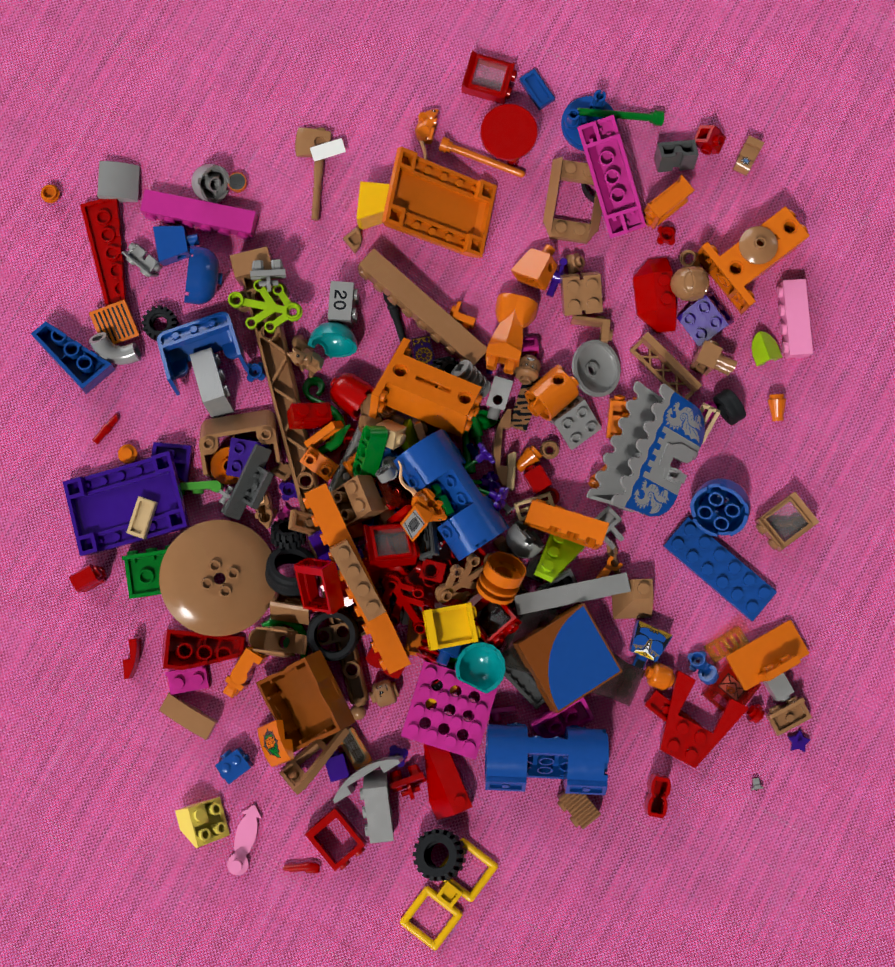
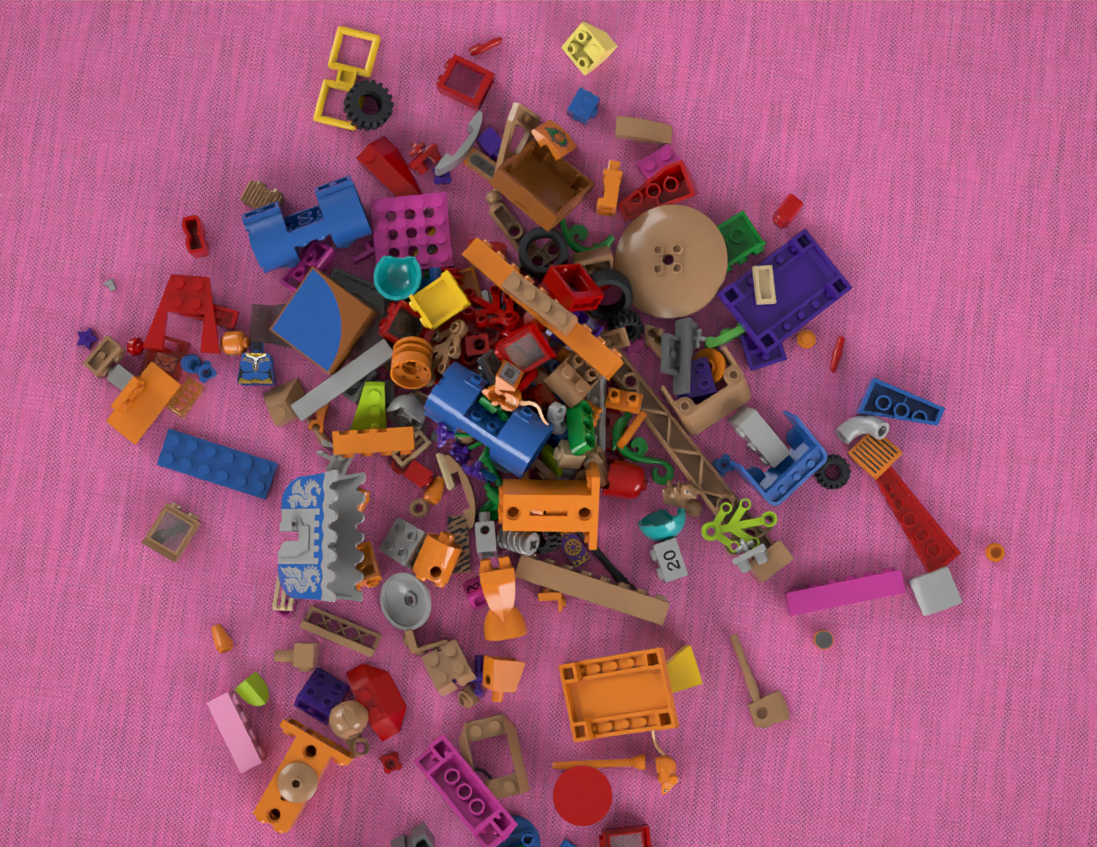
camera: 160 degrees right, 0 degrees up
(131, 665) = (715, 155): red slope -> none
(135, 257) = (868, 521): light grey hinge -> none
(173, 243) = (855, 553): blue torso -> none
(202, 276) = (812, 530): blue cylinder -> none
(210, 182) = (847, 625): light grey cylinder -> none
(244, 841) = (546, 47): bright pink brick -> none
(269, 638) = (599, 227): medium nougat piece -> none
(282, 472) = (657, 382): medium nougat tile -> none
(284, 489) = (644, 364): dark purple plate -> none
(309, 415) = (652, 440): red brick -> none
(327, 149) = (750, 708): white sticker -> none
(353, 240) = (687, 631): medium nougat tile -> none
(377, 807) = (440, 122): light grey wedge -> none
(384, 693) = (476, 223): medium nougat head -> none
(528, 369) = (468, 573): medium nougat head -> none
(667, 202) = (401, 792): orange window -> none
(720, 507) = (237, 518): blue cylinder -> none
(730, 406) = (266, 618): black tyre -> none

